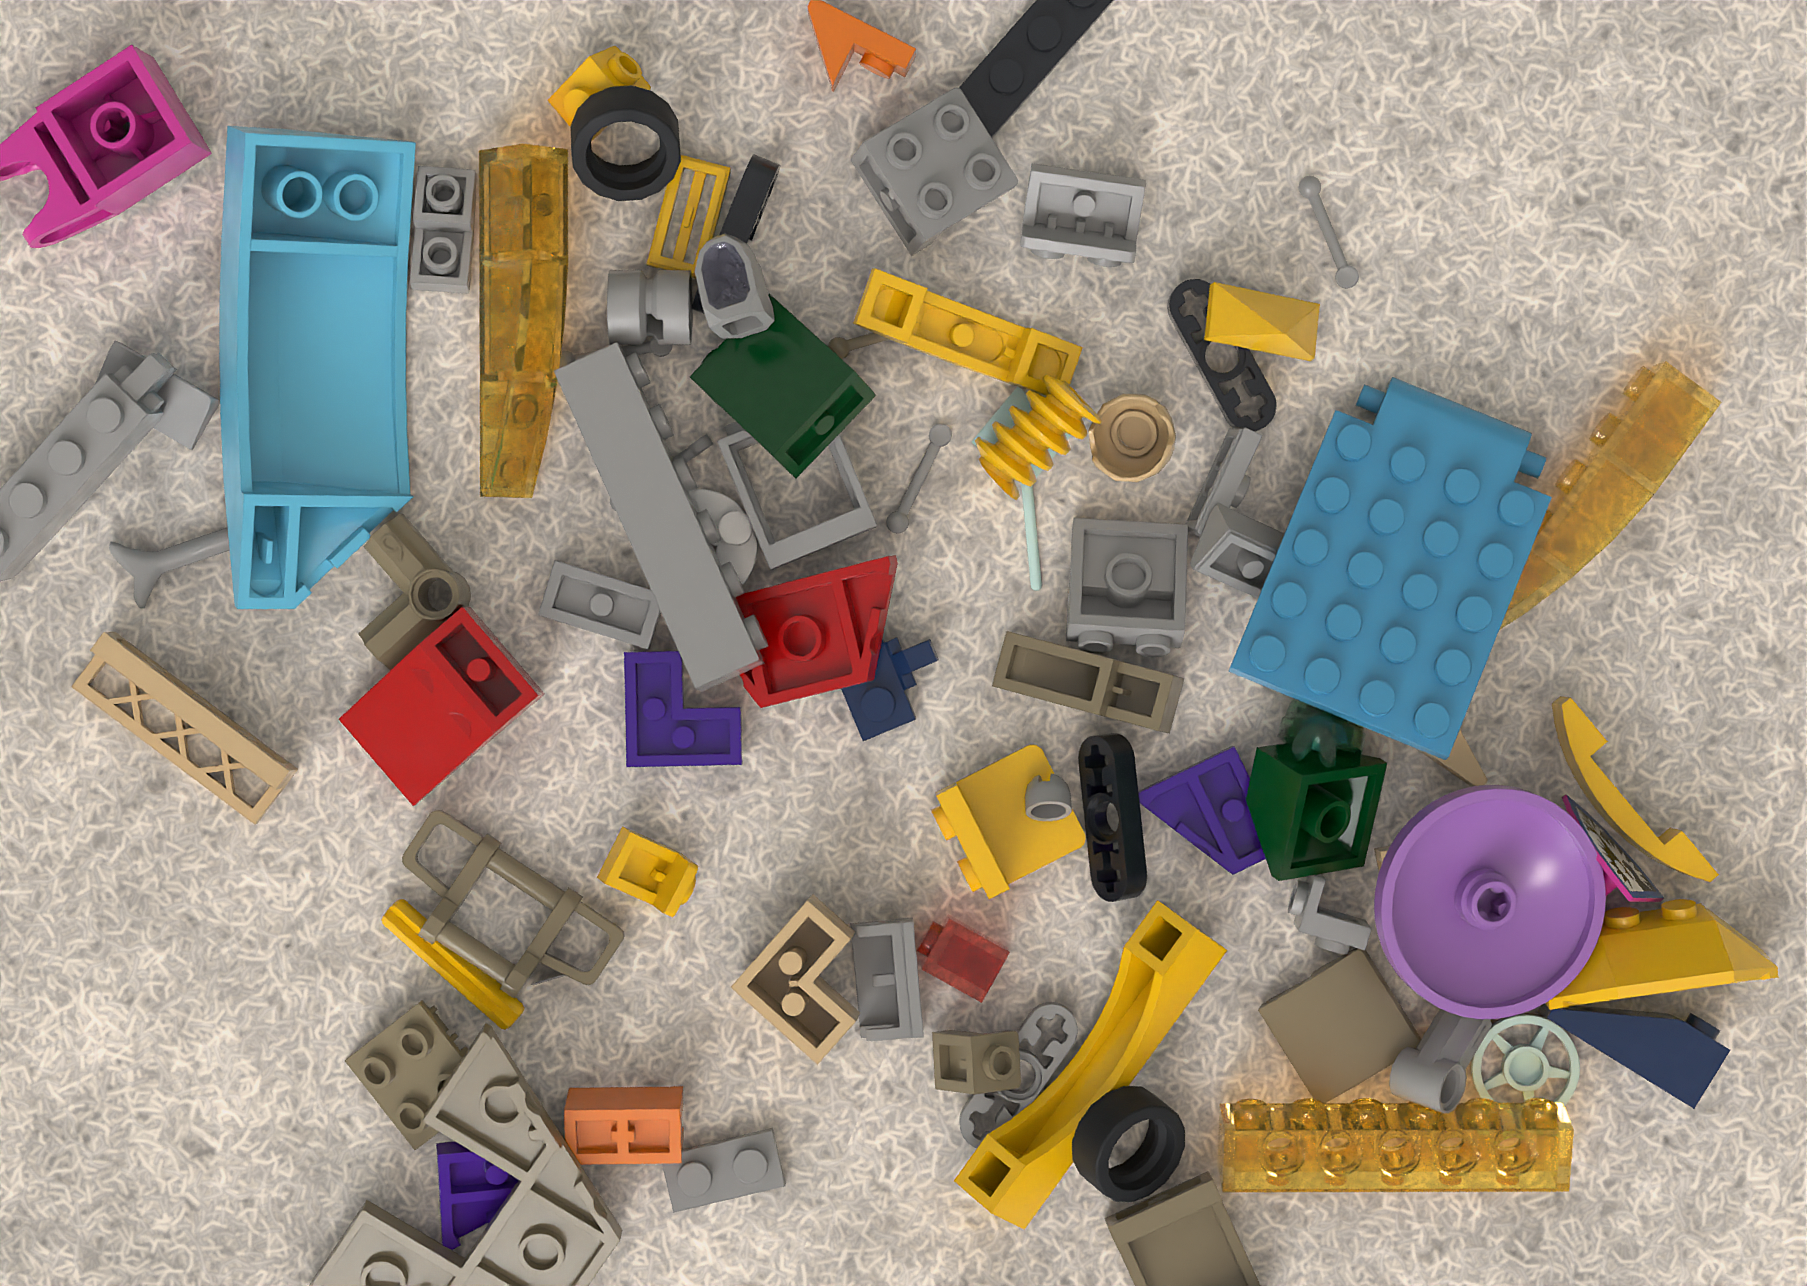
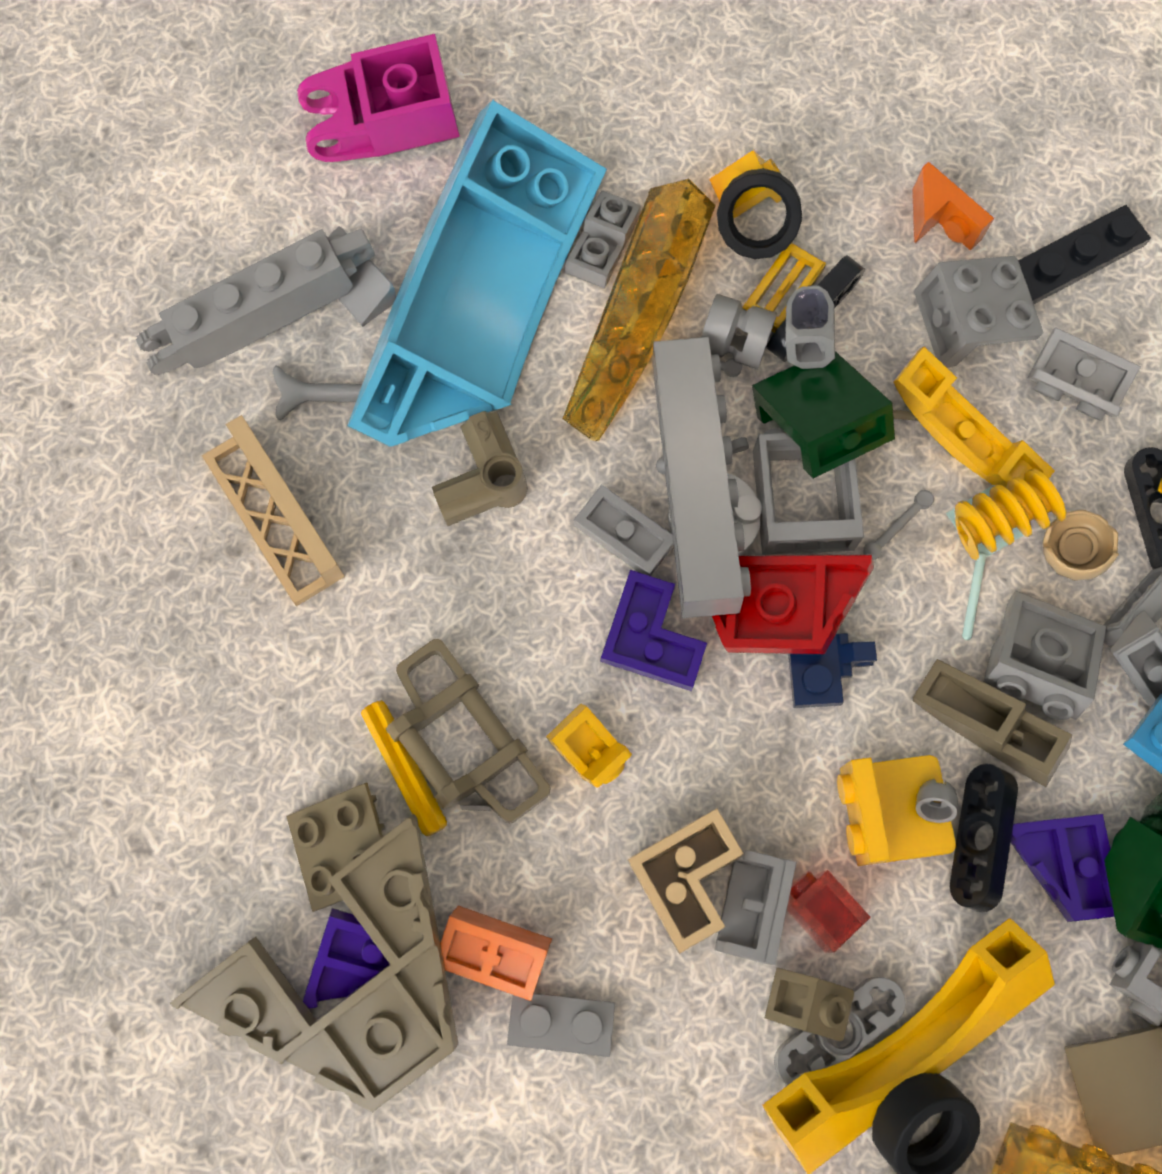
camera: 20 degrees right, 15 degrees down
(441, 705) = (474, 559): red slope -> none

